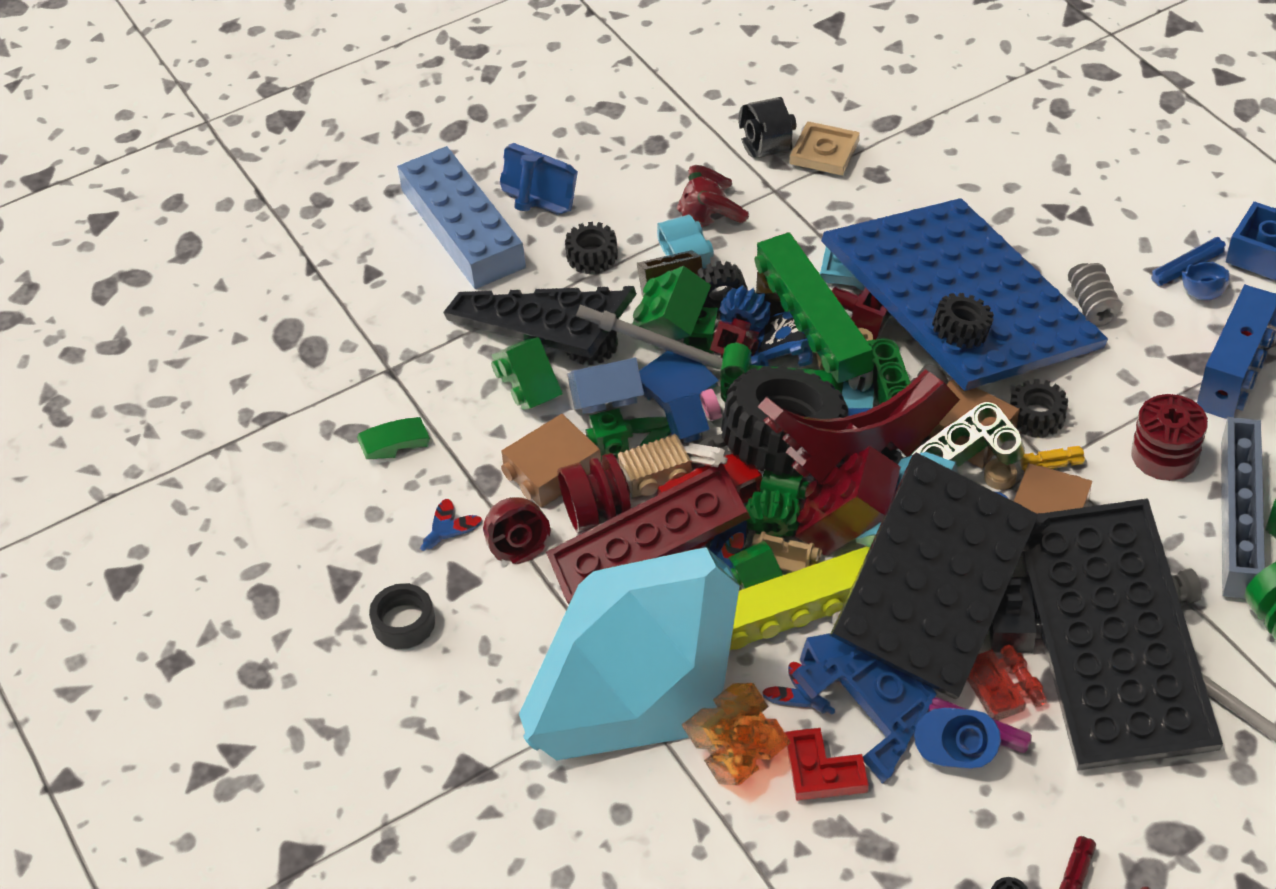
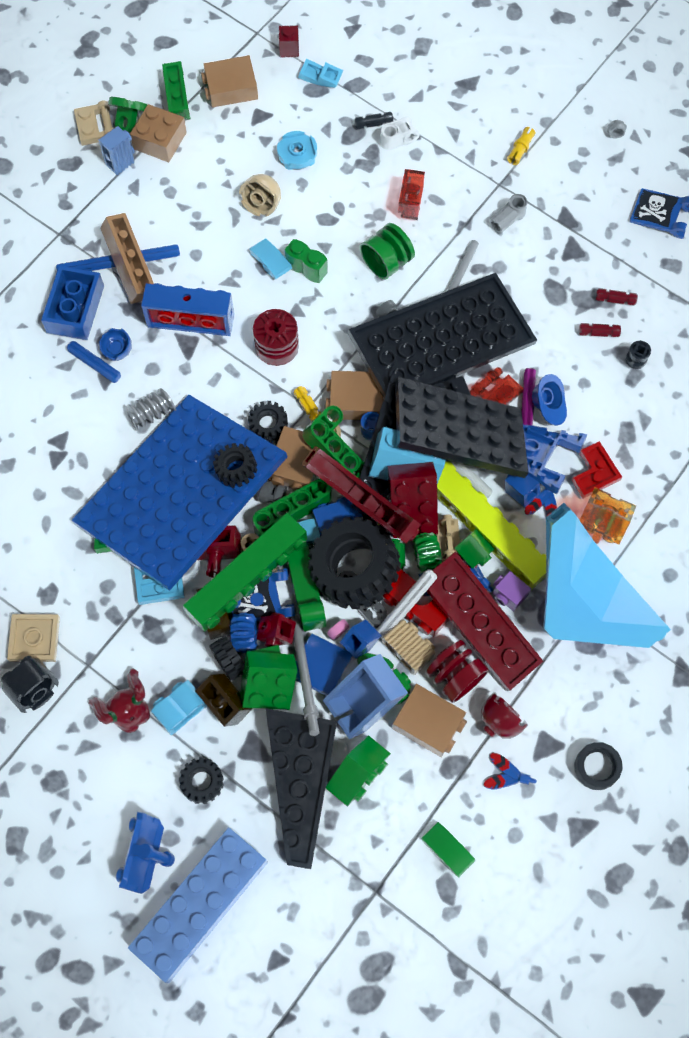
camera: 115 degrees left, 20 degrees up
(1241, 505) = (319, 289): sand blue brick -> none

